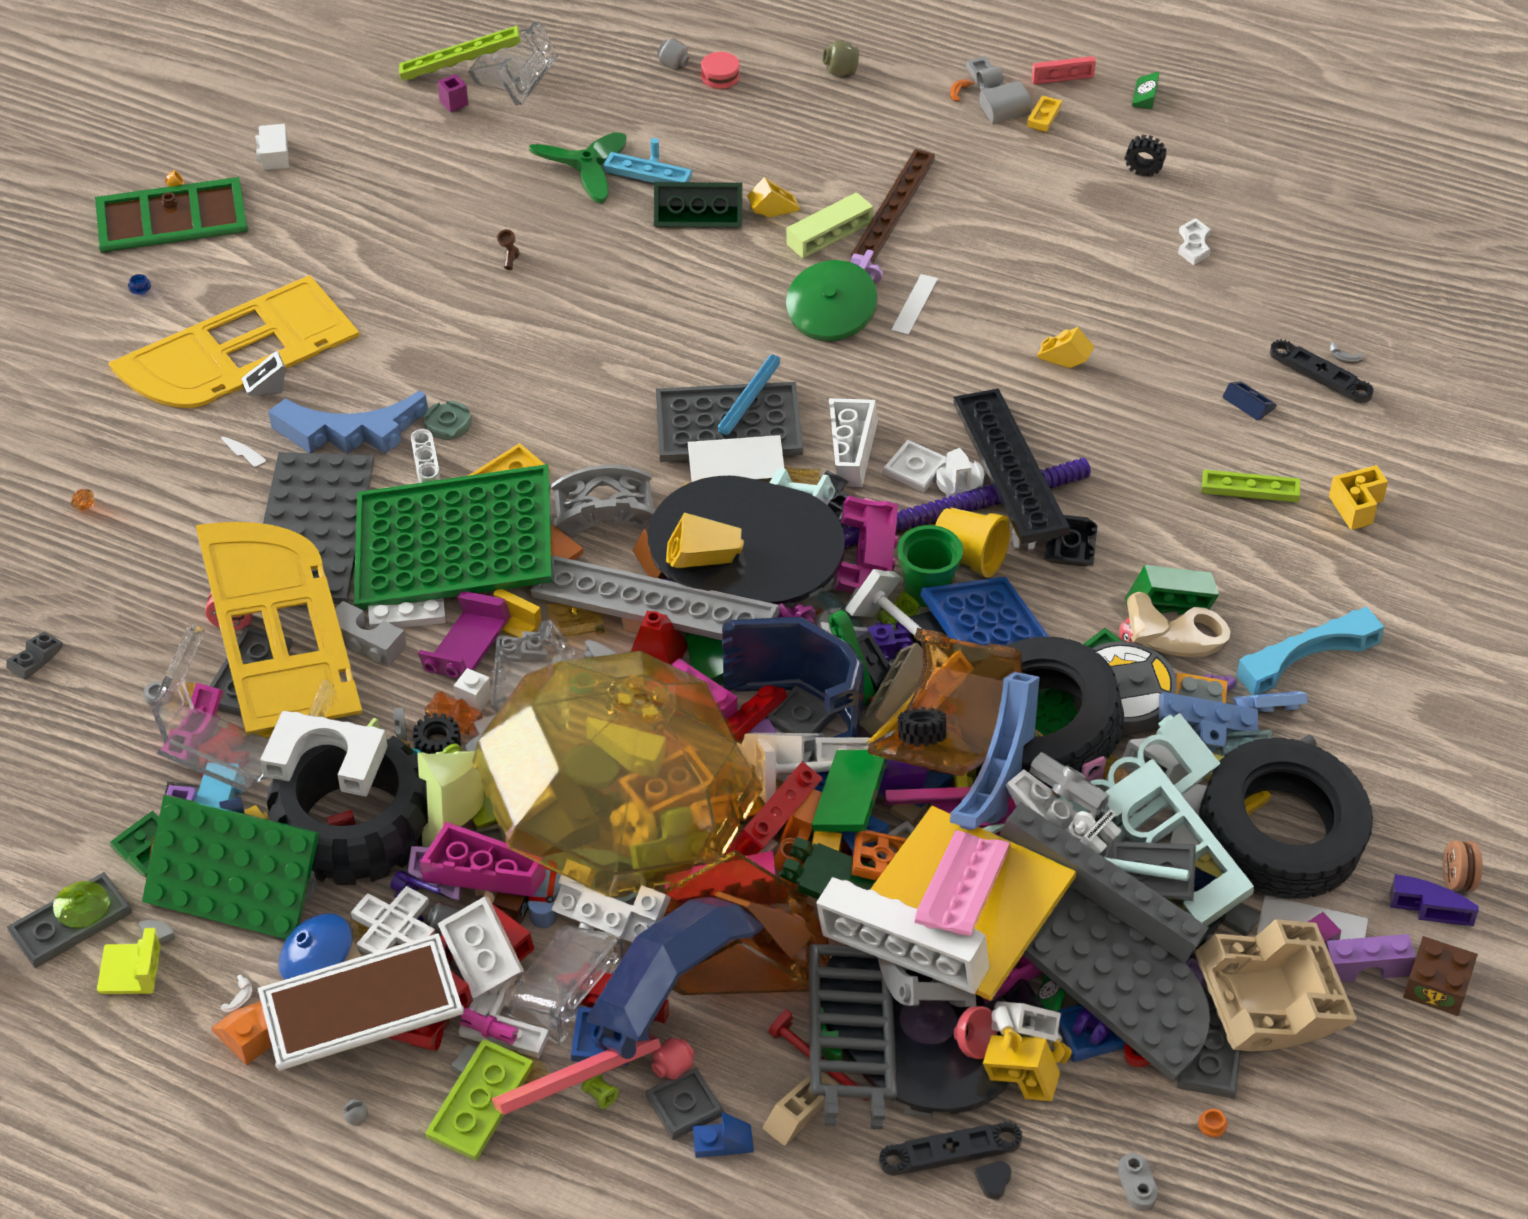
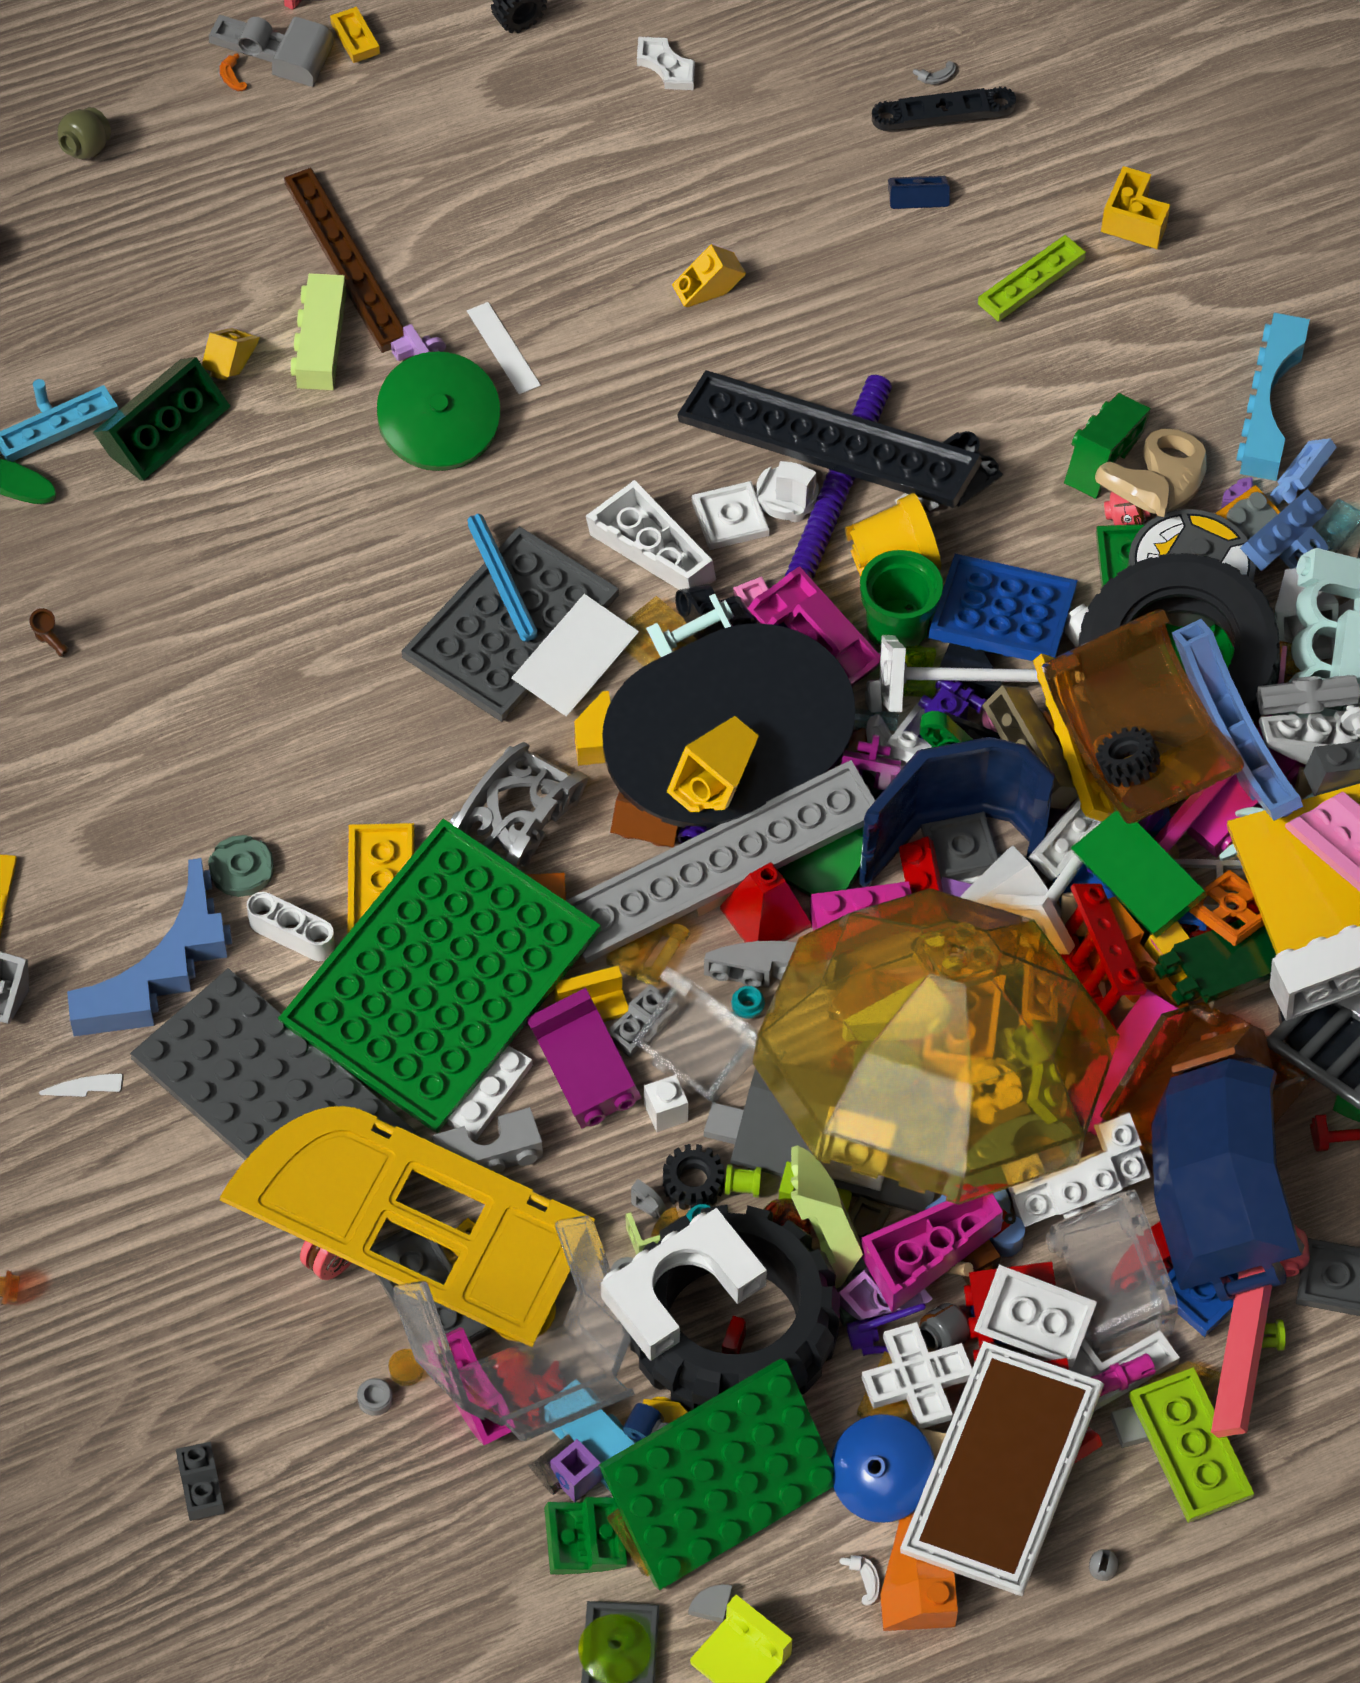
camera: 50 degrees left, 10 degrees up
(455, 708) = (658, 1142): clear orange tile -> none

